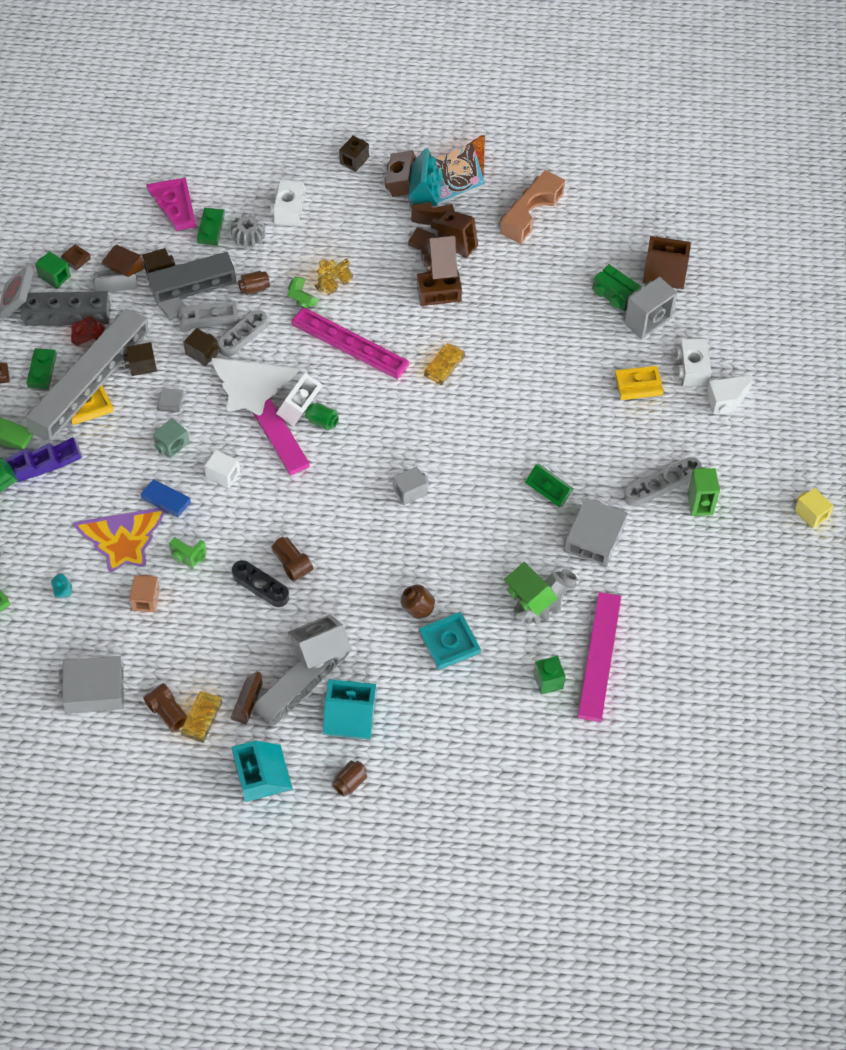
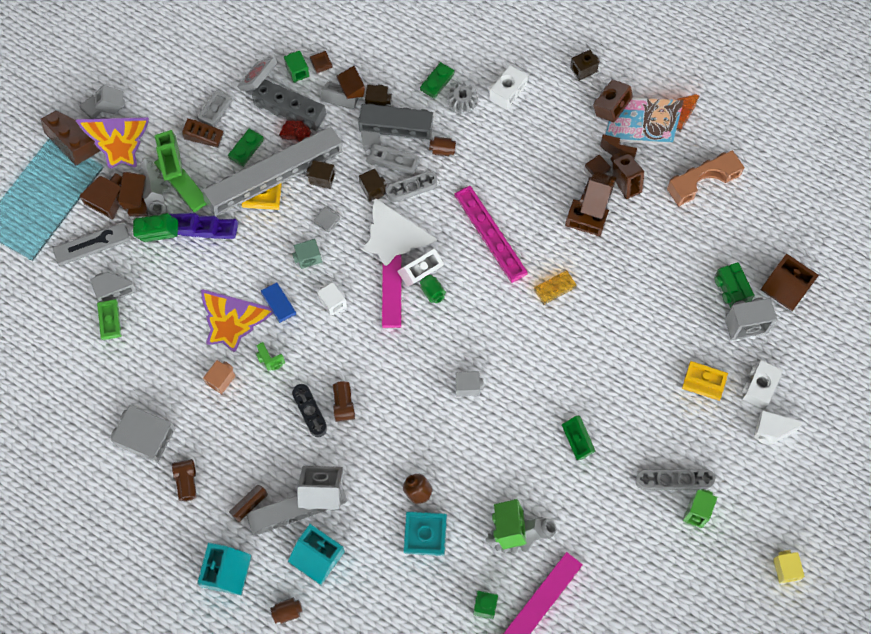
camera: 30 degrees right, 10 degrees up
(61, 586) = (164, 340): teal piece -> none
(174, 201) = (420, 47): dark pink wing -> none
(201, 716) = (206, 501): clear yellow plate -> none
(303, 298) = (473, 176): bright green bracket -> none
(327, 281) = (500, 170): clear yellow hips -> none
(425, 180) = (625, 117): teal slope -> none
(596, 532) = (593, 497): light grey brick -> none

